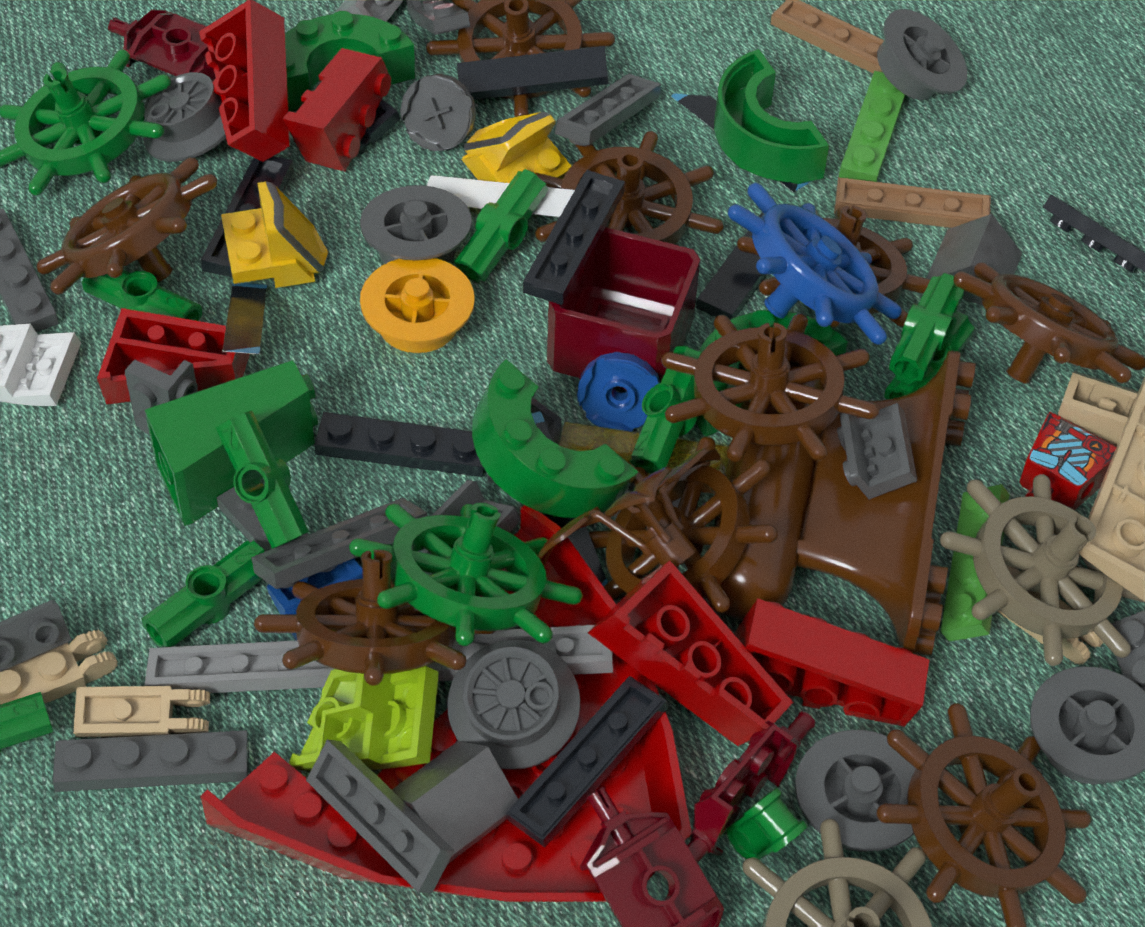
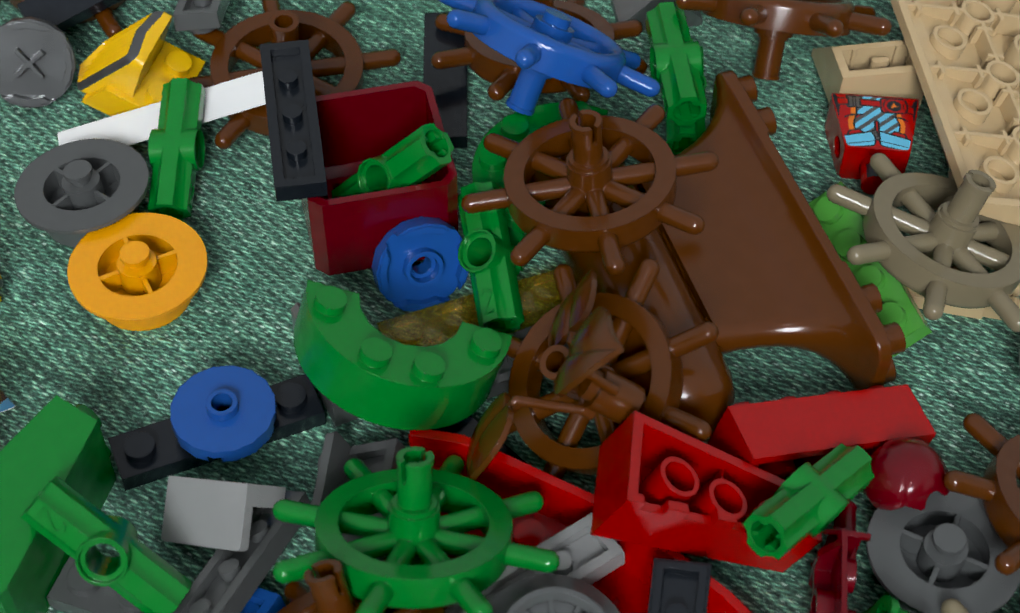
camera: 30 degrees left, 0 degrees up
(354, 491) = (213, 511): none -> light grey panel
(408, 431) = (225, 433): none -> blue plate
(638, 308) = (402, 165): none -> green piece
(768, 692) = (808, 501): none -> green piece
(866, 717) = (905, 474): none -> dark red hair
(877, 451) = (732, 200): dark grey bracket -> none

